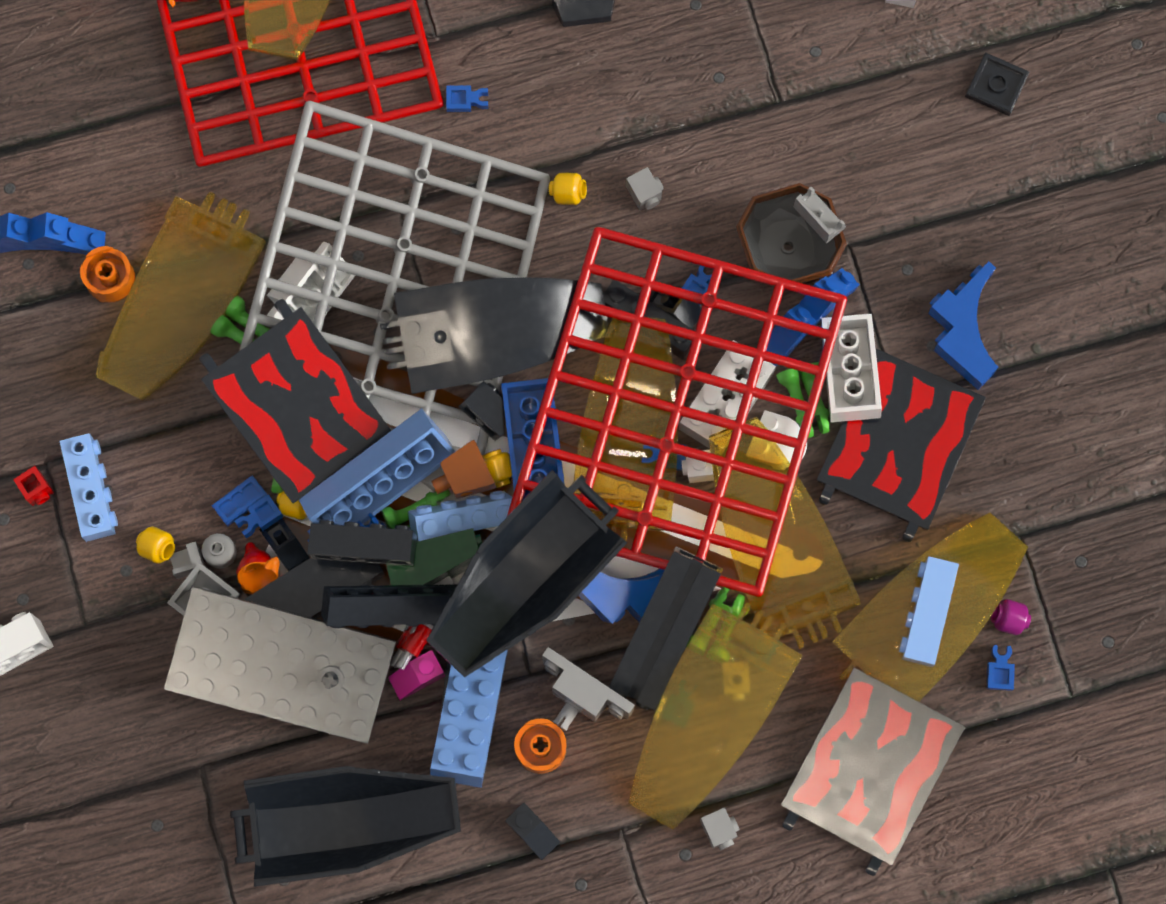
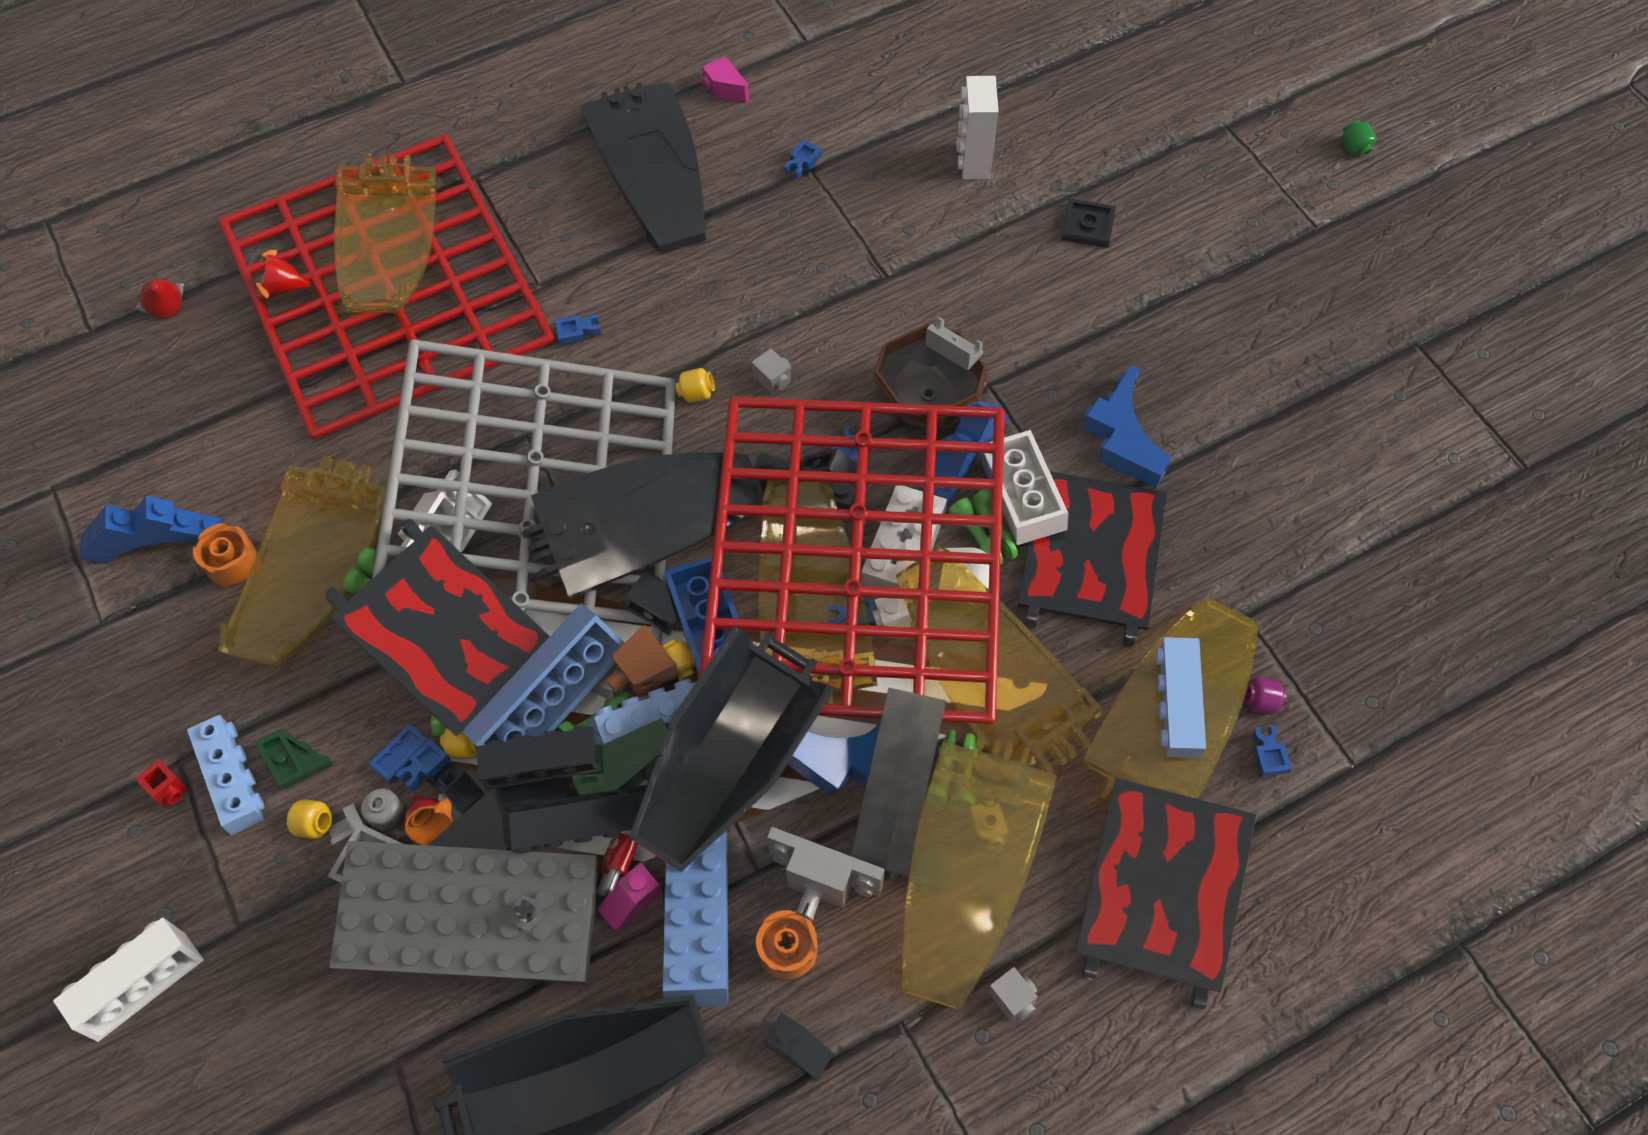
camera: 10 degrees left, 15 degrees down
(143, 484) = (290, 759): none -> dark green wing

